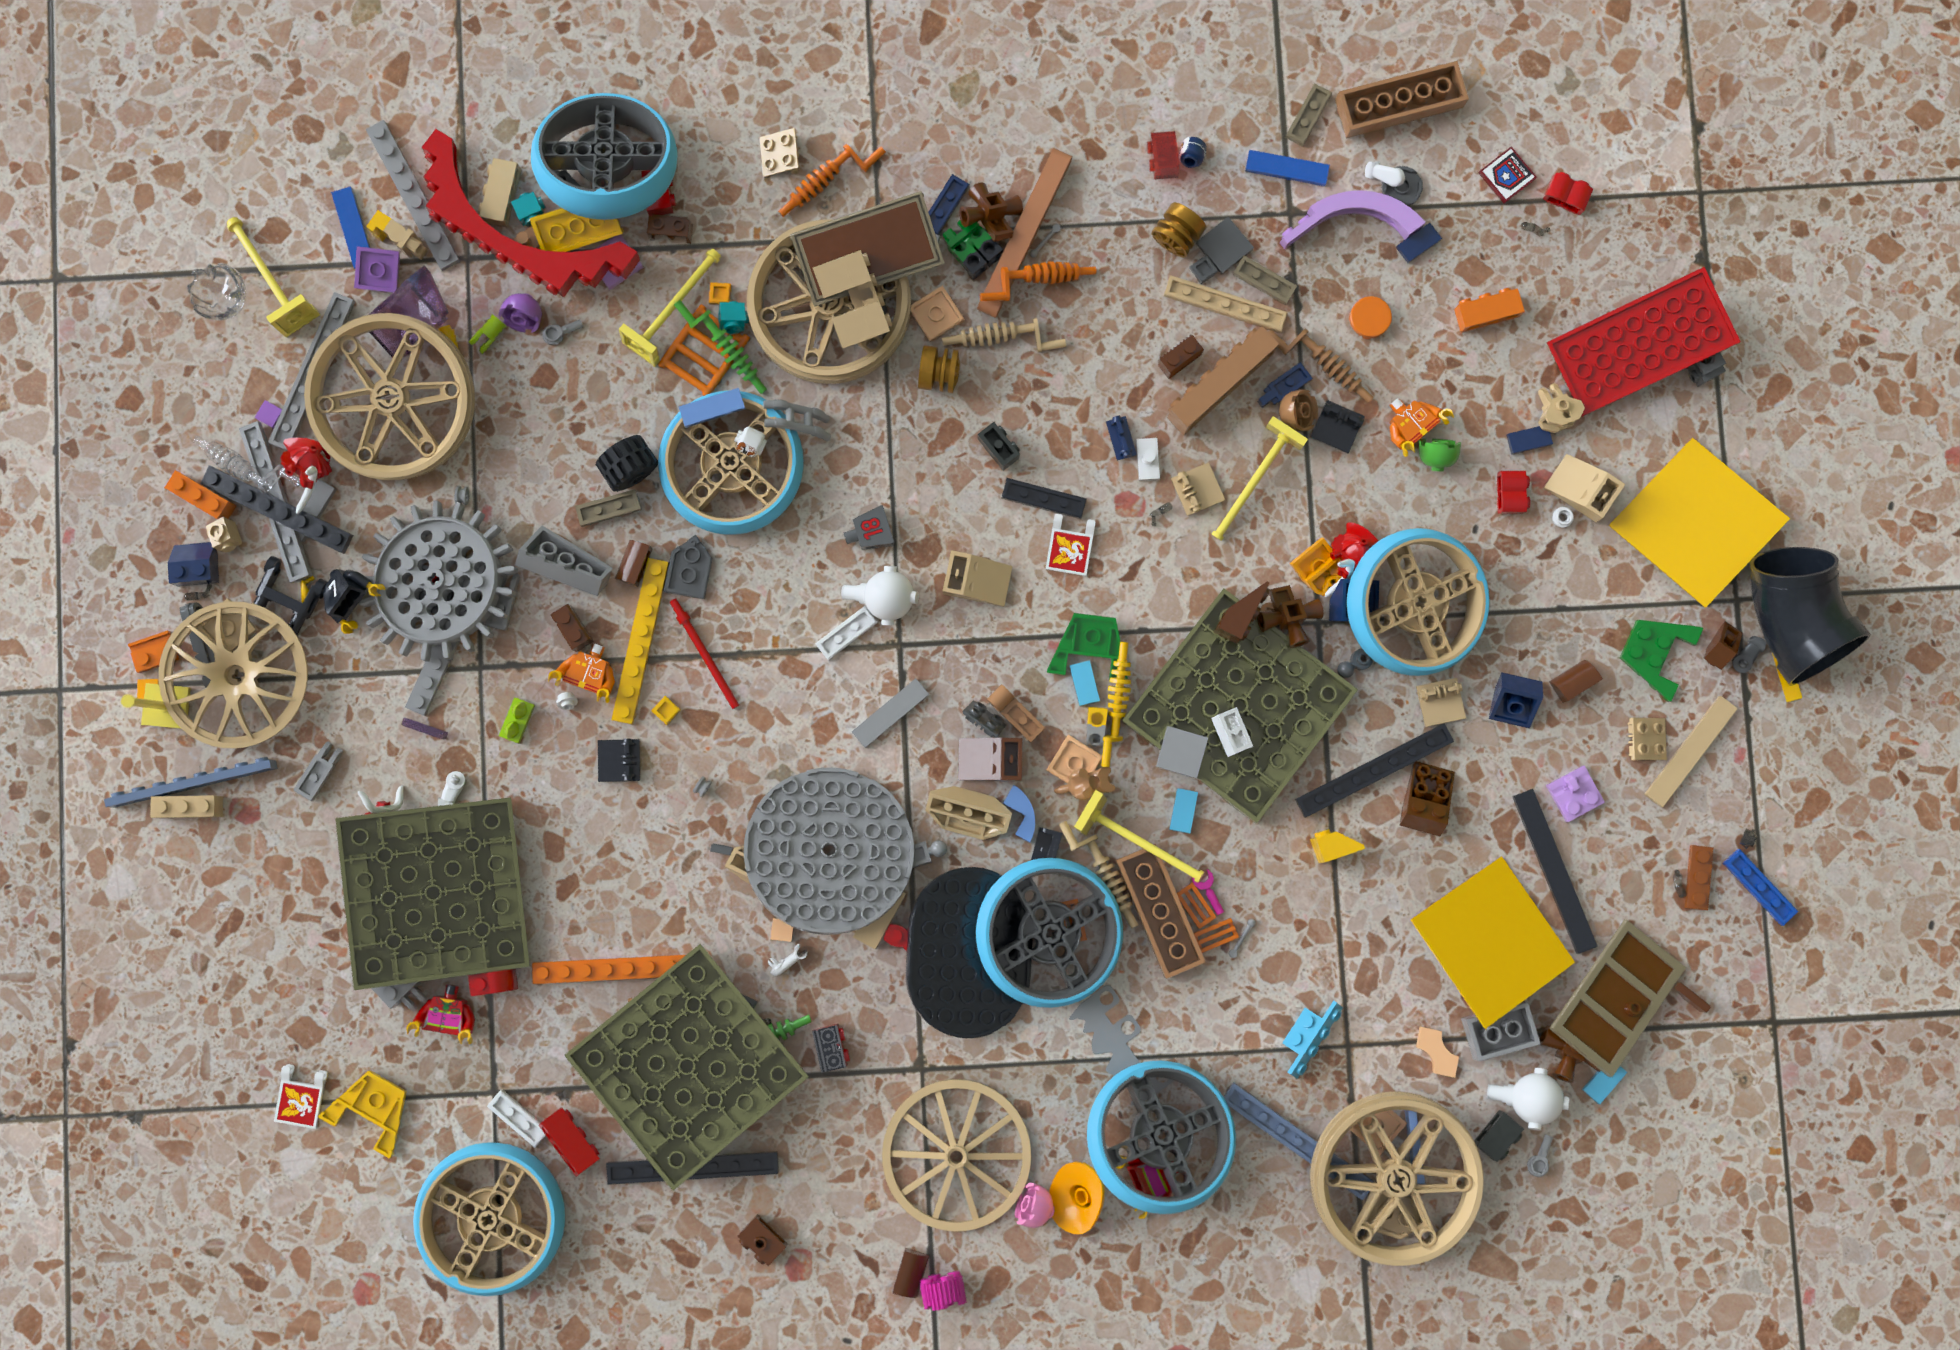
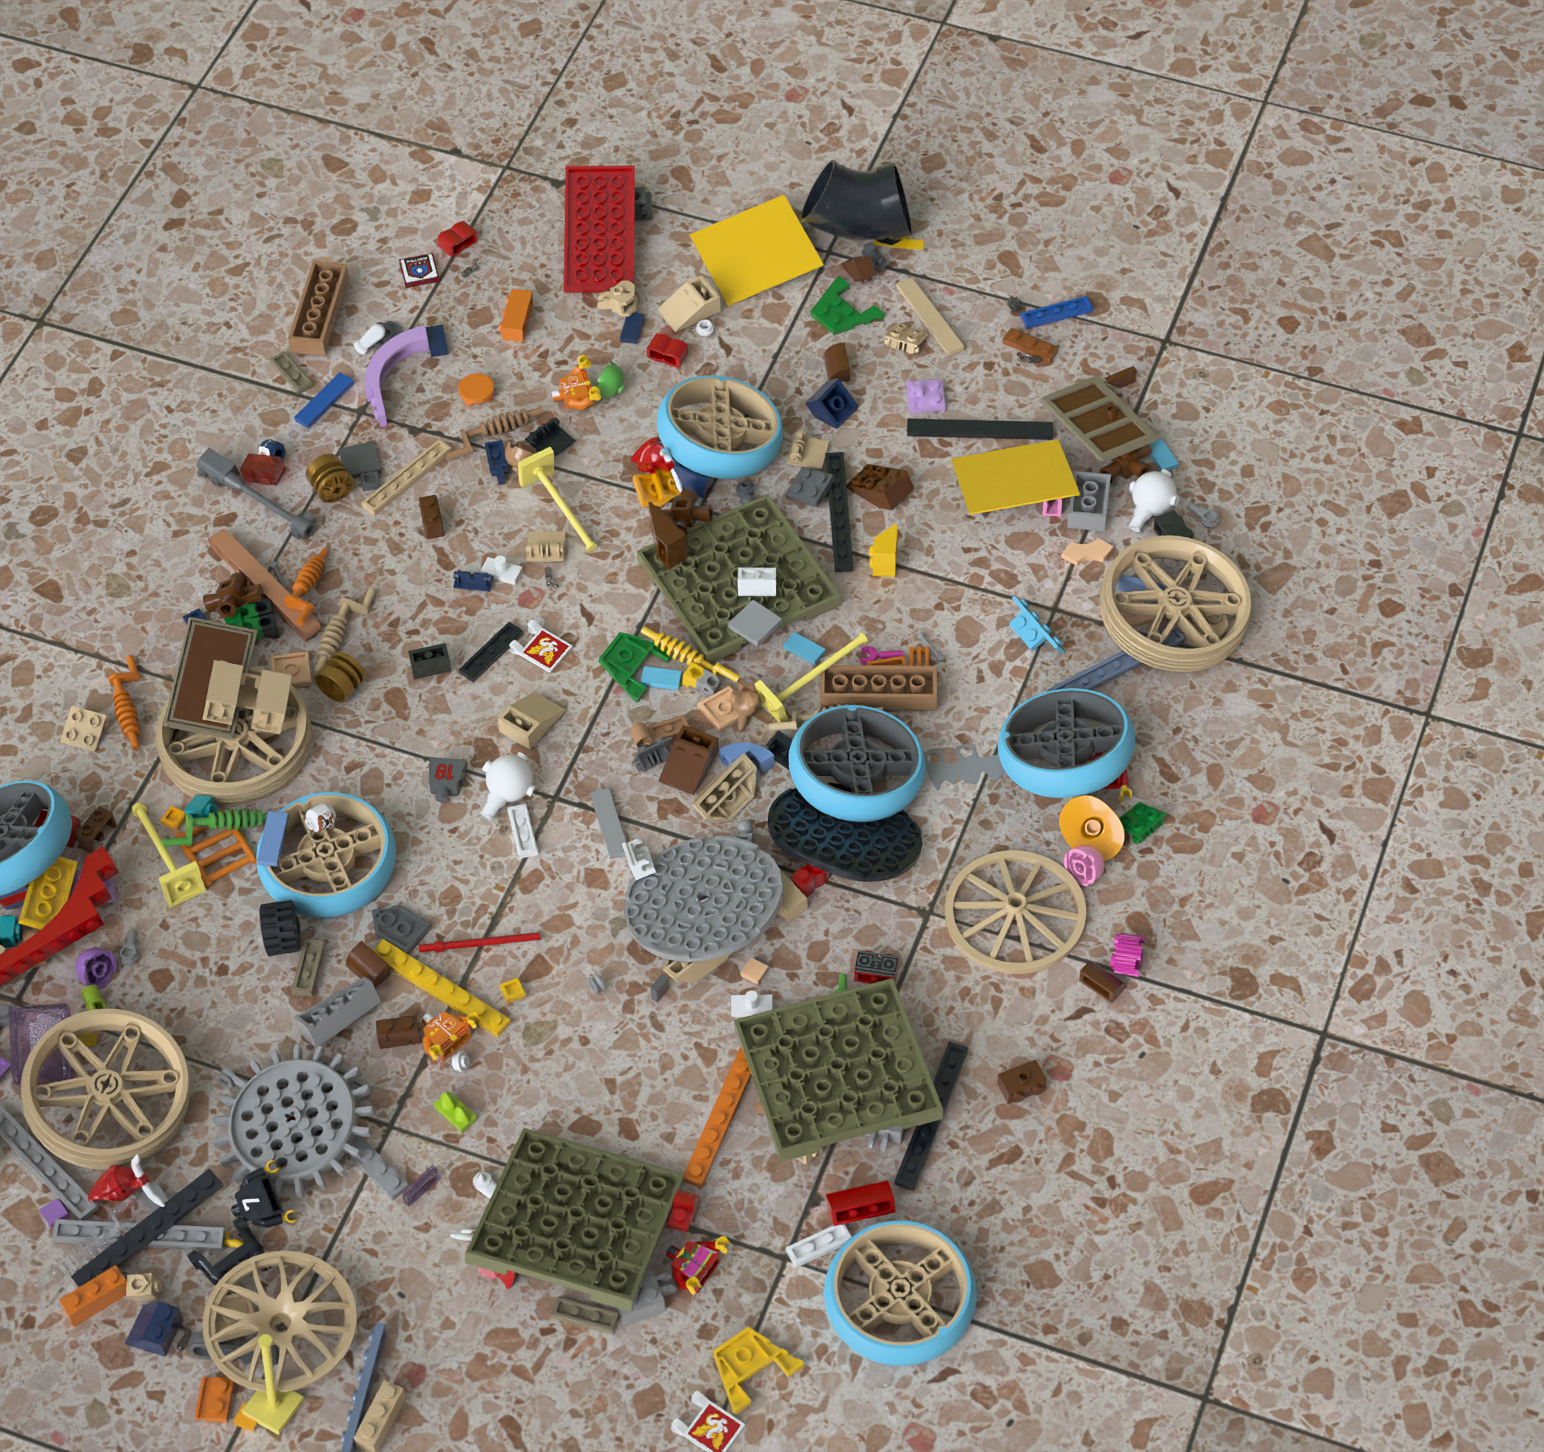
camera: 65 degrees left, 30 degrees down
(317, 772) = (411, 1294): light grey hinge -> none
(619, 760) = (536, 1042): black hinge -> none
(743, 944) = (750, 1004): none -> white tile
(784, 964) = (786, 981): white piece -> none
(789, 423) = (318, 787): light grey piece -> none
(853, 764) = (638, 859): none -> white hinge
(1114, 1238) = (1142, 821): none -> green hinge
(1143, 120) = (226, 473): none -> dark grey bar
(1223, 380) = (468, 493): medium nougat brick -> none
(1264, 280) = (404, 443): dark tan plate -> none
(1391, 726) = (809, 487): none -> dark grey plate

